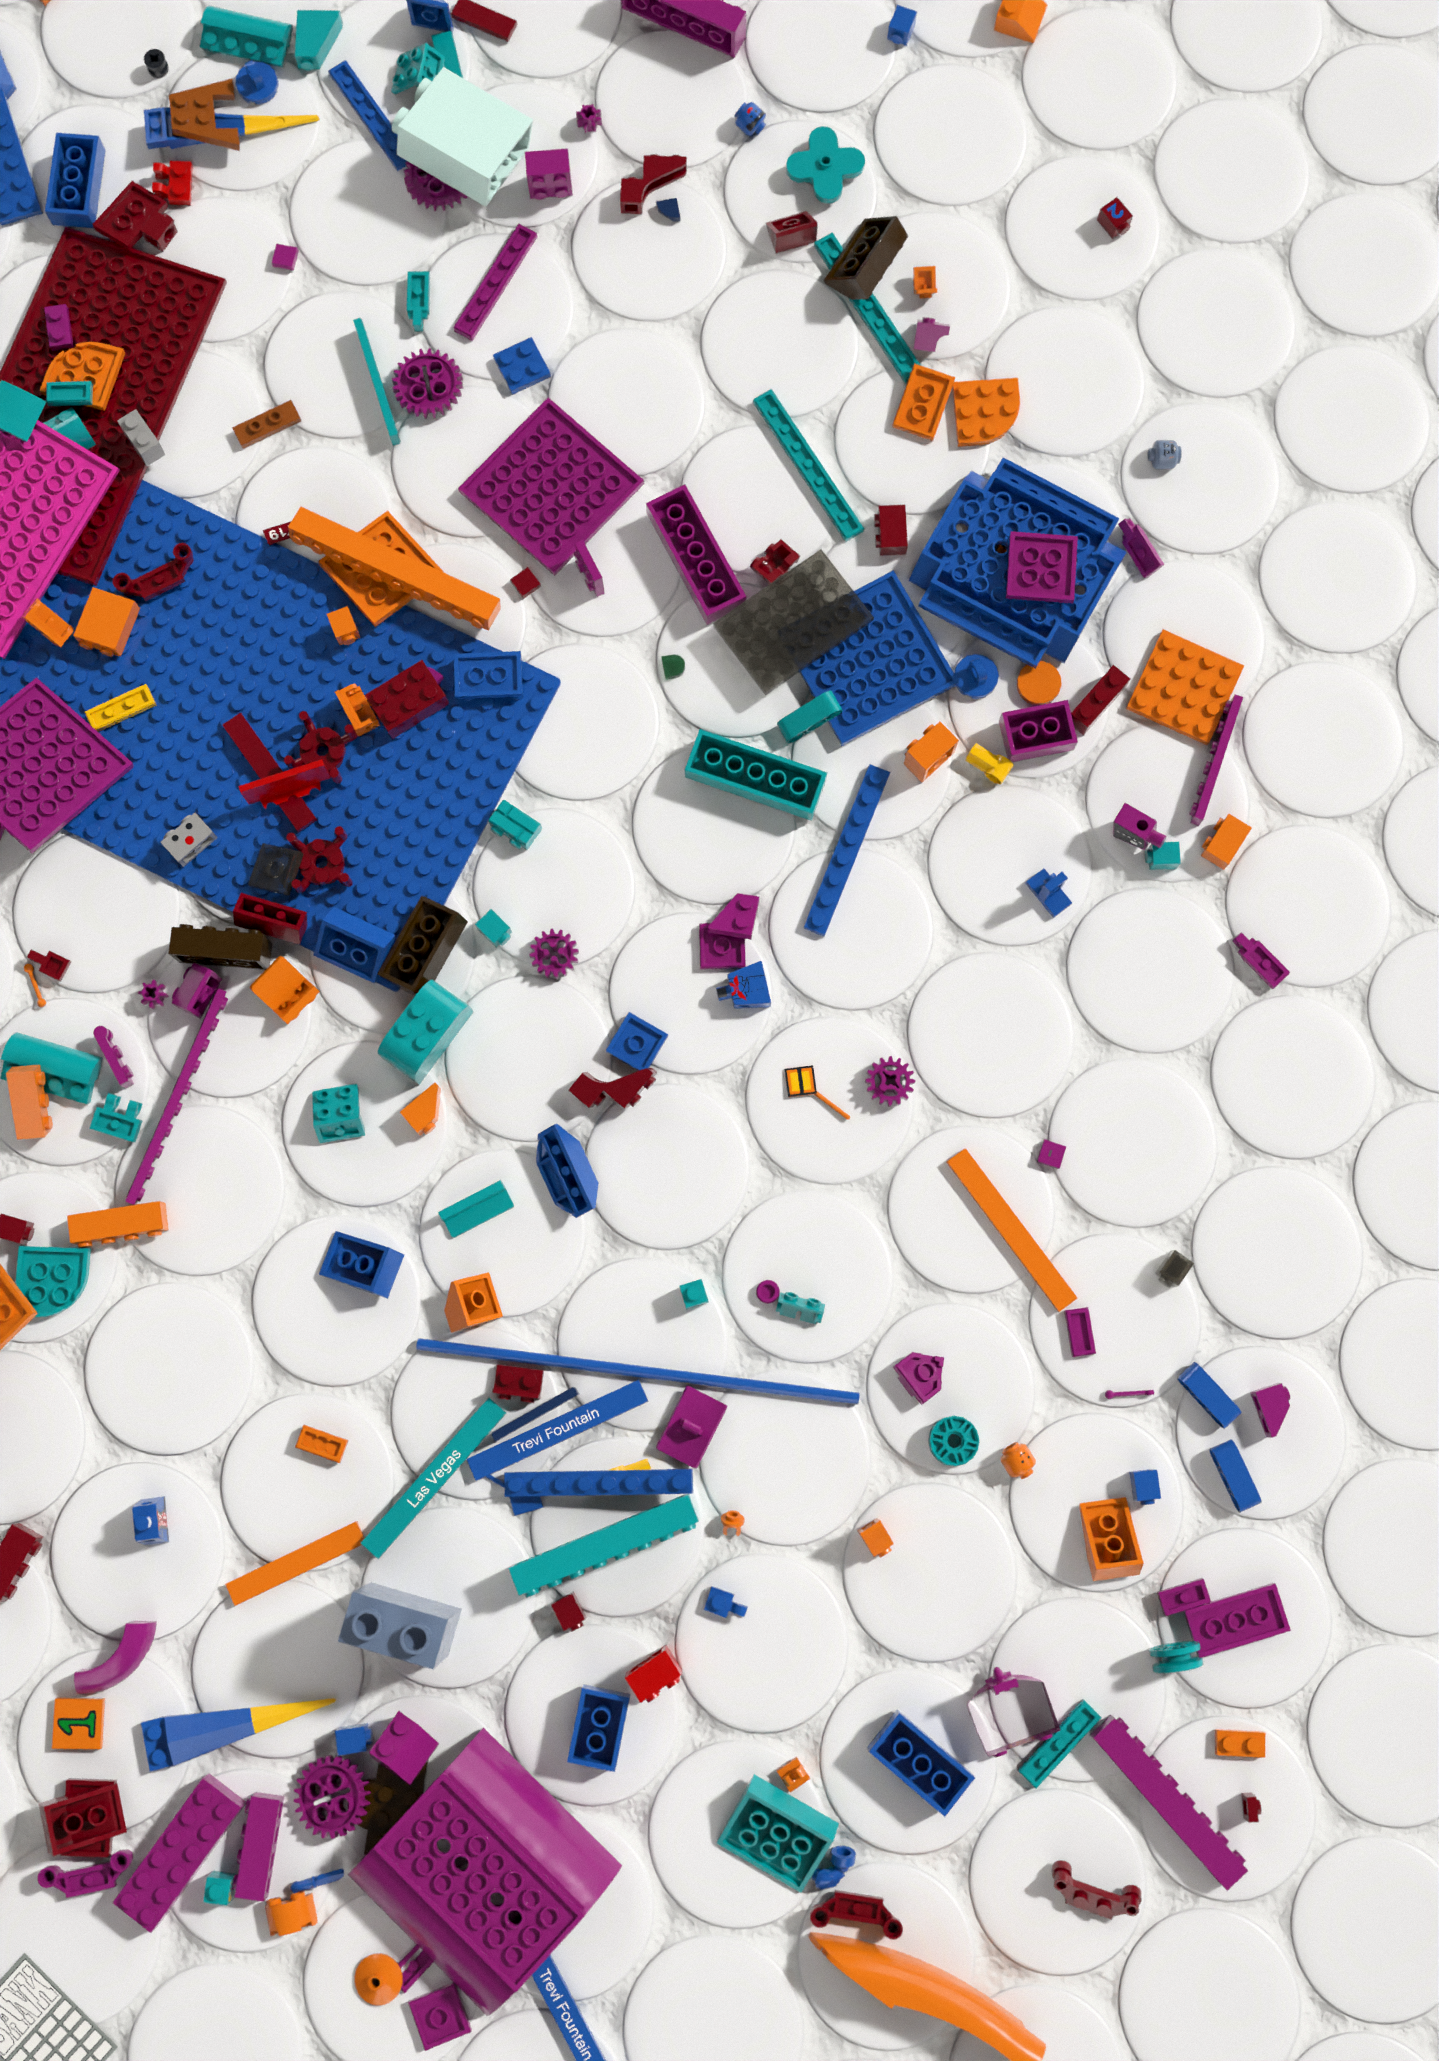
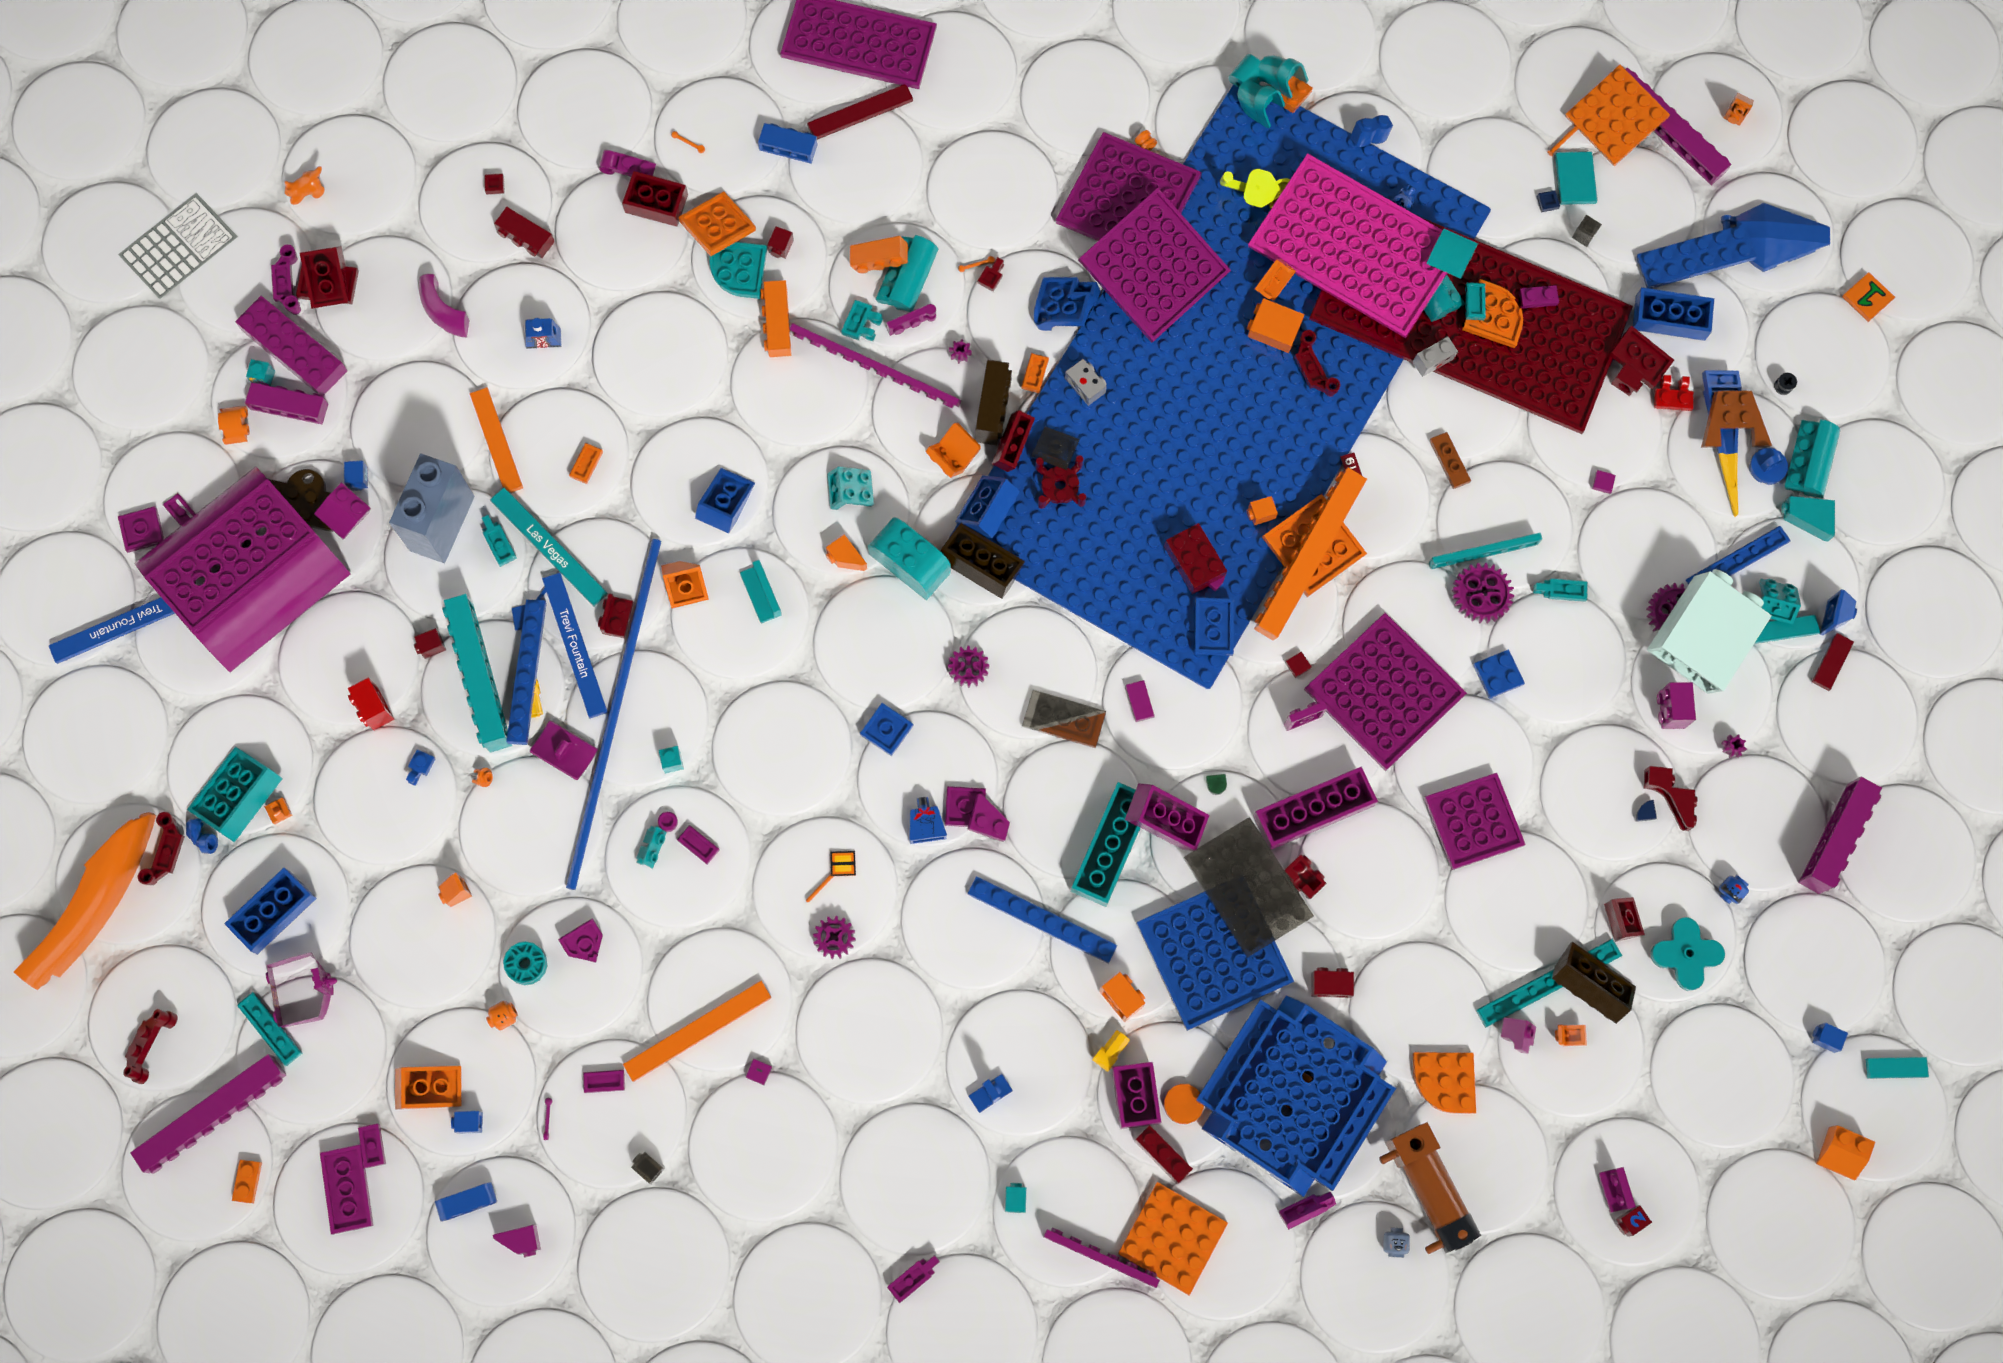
camera: 90 degrees right, 5 degrees down
(78, 1723) = (398, 278): orange tile -> none
(85, 872) = (1064, 302): none -> blue slope
(120, 708) = (1202, 334): yellow tile -> none
(177, 903) = (1035, 373): none -> orange plate
(186, 1736) = (376, 354): blue plate -> none
(196, 990) = (959, 383): magenta slope -> none
(265, 766) = (1140, 447): dark red tile -> none
(281, 786) = (1123, 455): red piece -> none
(319, 1880) = (255, 444): blue piece -> none
(322, 737) = (1156, 479): dark red plate -> none
(338, 1819) = (297, 460): magenta gear -> none
(357, 709) = (1189, 517): orange hinge -> none
(386, 1971) = (180, 490): orange dish -> none
(431, 1542) = (498, 542): none -> teal hinge
(494, 928) = (993, 619): teal brick -> none
(495, 282) = (1578, 656): magenta tile -> none
(515, 825) = (1082, 641): teal brick -> none
(535, 1413) = (589, 627): dark blue tile -> none
(566, 1171) = (783, 665): blue wedge -> none
(581, 756) = (1139, 701): none -> magenta tile
(598, 1728) = (335, 659): blue brick -> none
(608, 841) = (1064, 719): none -> clear smoke tile
(622, 1090) = (845, 713): dark red arch -> none
(695, 386) = (1474, 821): none -> magenta plate
(722, 711) = (1167, 817): none -> magenta brick
(792, 1252) = (698, 844): none -> magenta tile
(808, 465) = (1398, 916): teal tile -> none
(809, 717) = (1161, 895): teal beam -> none
(923, 402) = (1454, 1024): orange tile -> none
(976, 676) = (1193, 1048): blue tile -> none
(1041, 567) = (1285, 1109): magenta plate -> none
(1069, 432) = (1434, 1188): none -> dark orange piece
(1084, 233) = (1616, 1189): none -> magenta bracket
(1137, 828) = (1043, 1170): magenta torso -> none
(1176, 1657) = (322, 1130): teal wheel -> none
(1209, 1395) = (536, 1186): blue beam -> none
(1226, 841) = (1025, 1258): orange brick -> none
(1251, 1807) = (193, 1183): dark red plate -> none

